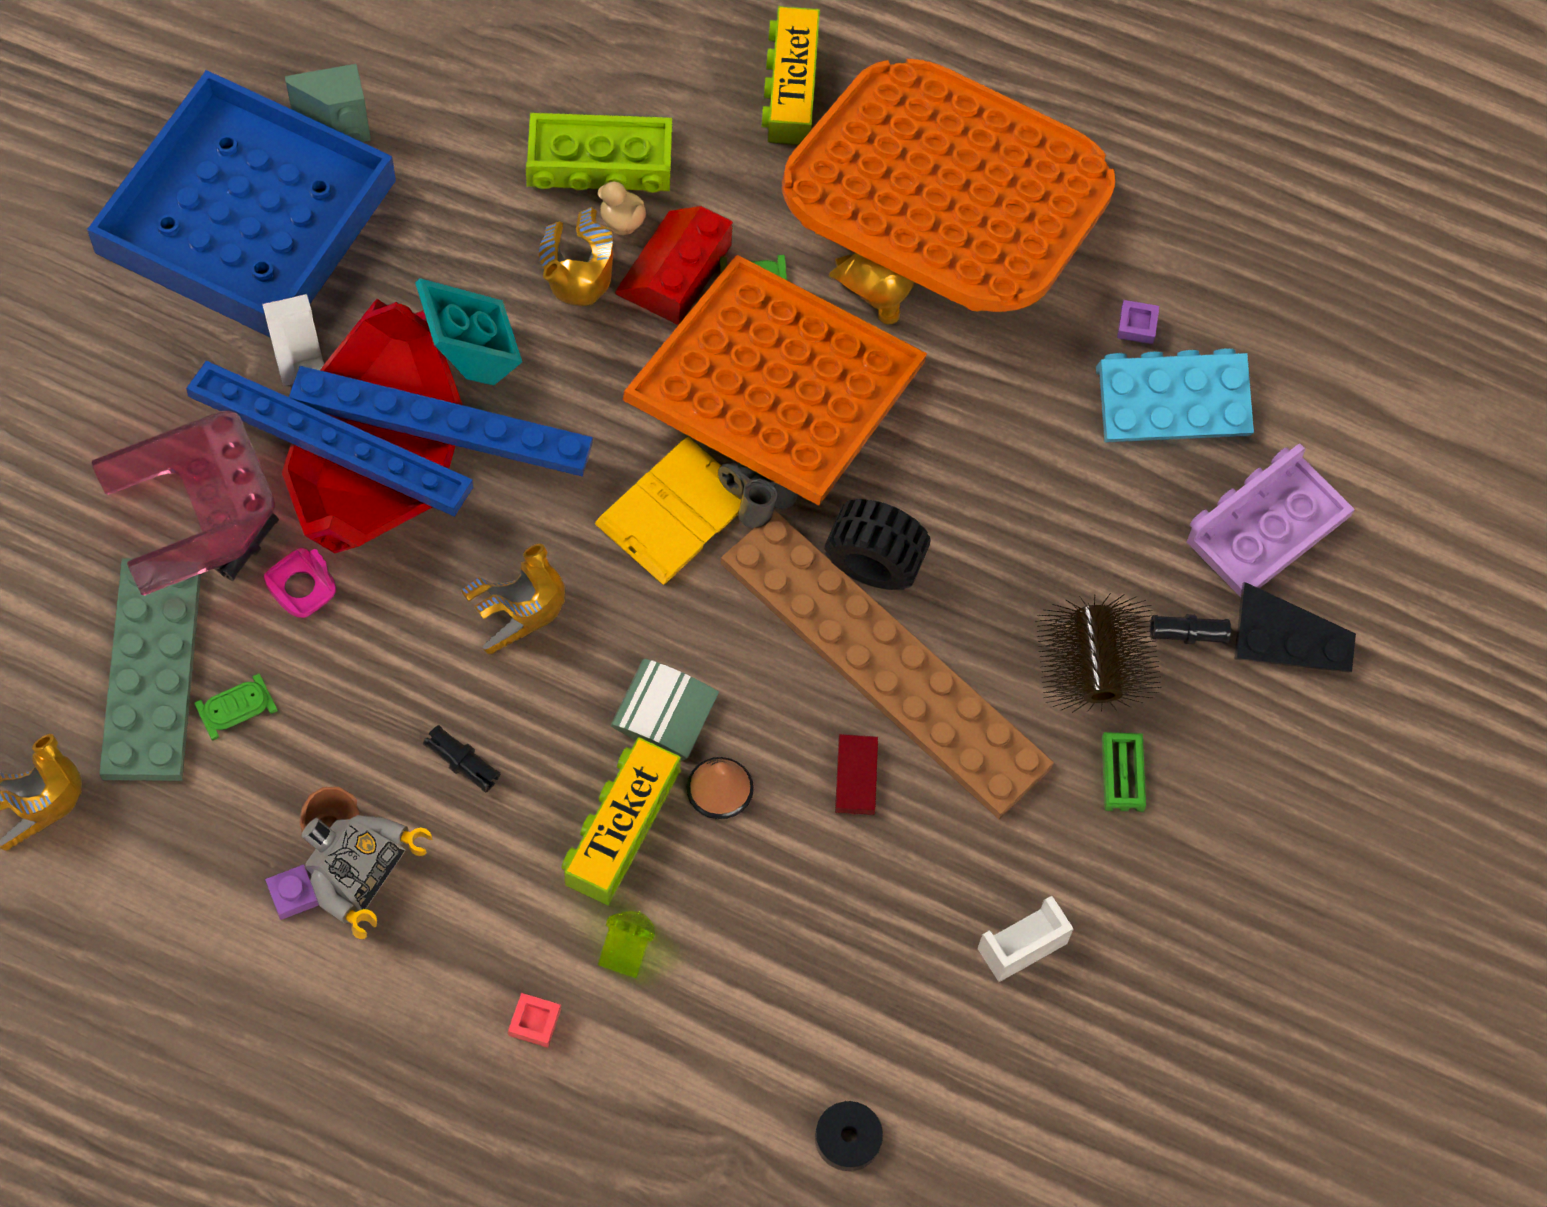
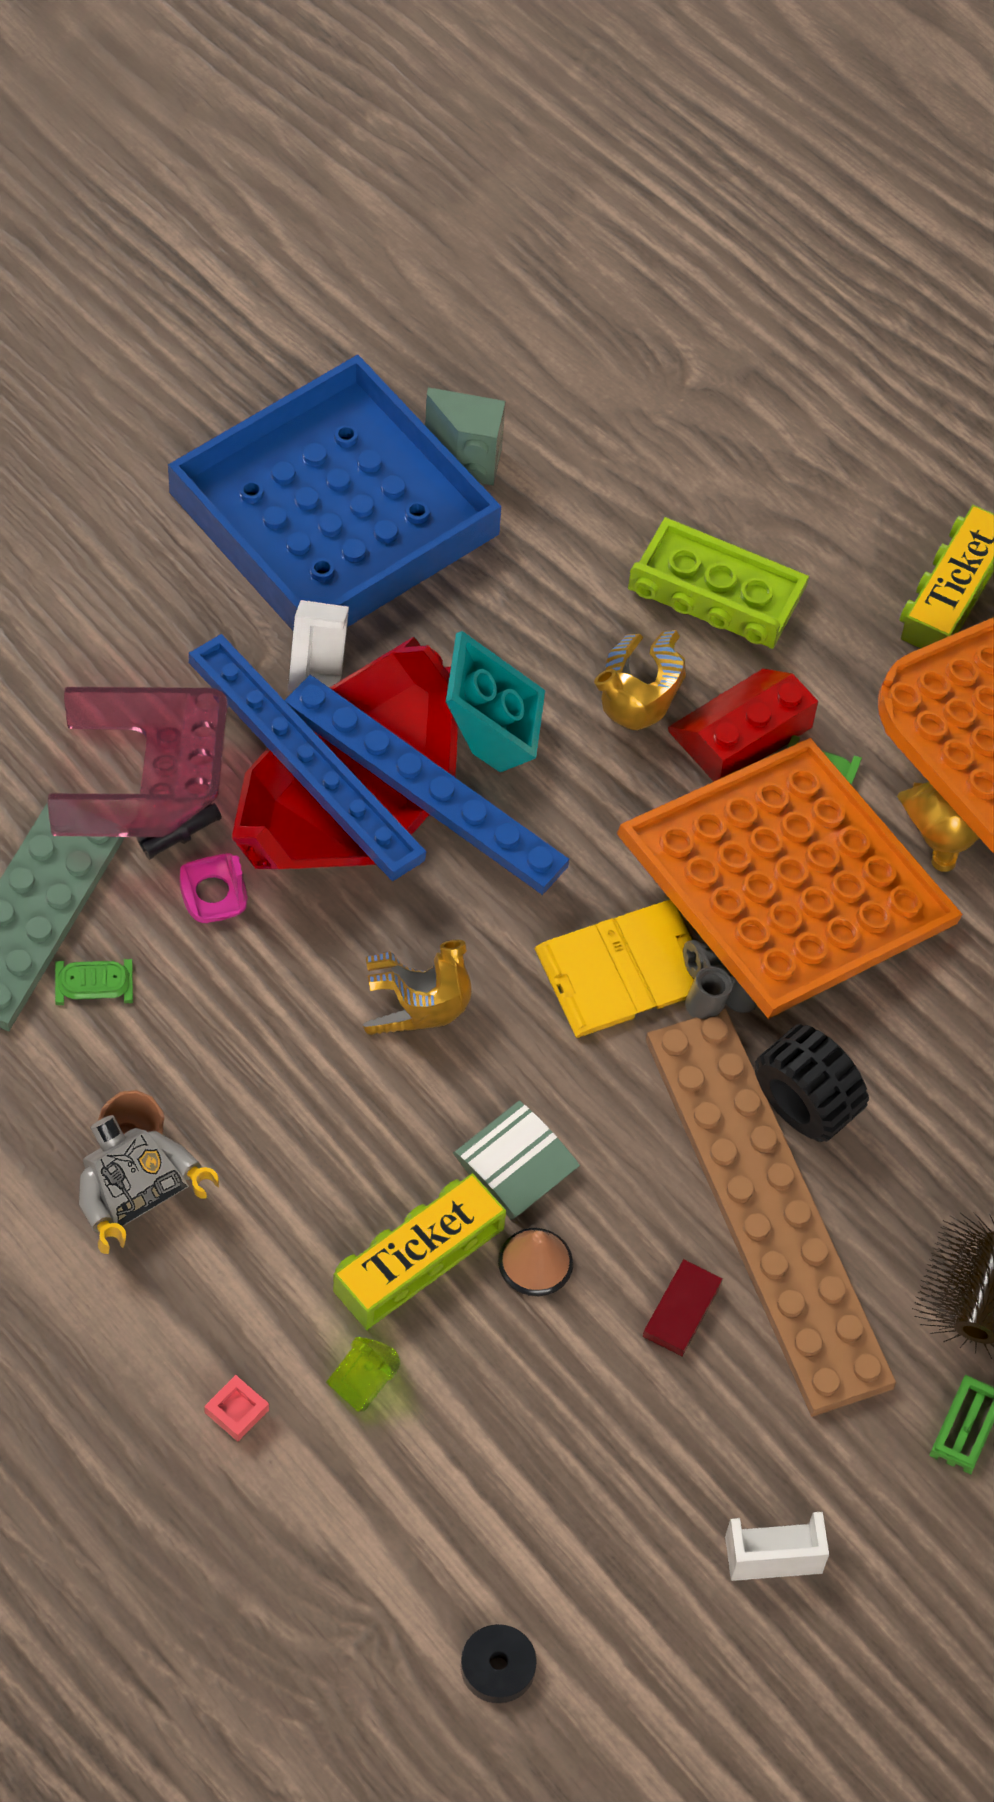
camera: 25 degrees right, 5 degrees down
(292, 892) = (59, 1182): medium lavender plate -> none
(461, 758) = (289, 1123): black pin -> none
(620, 208) = (710, 646): tan animal -> none

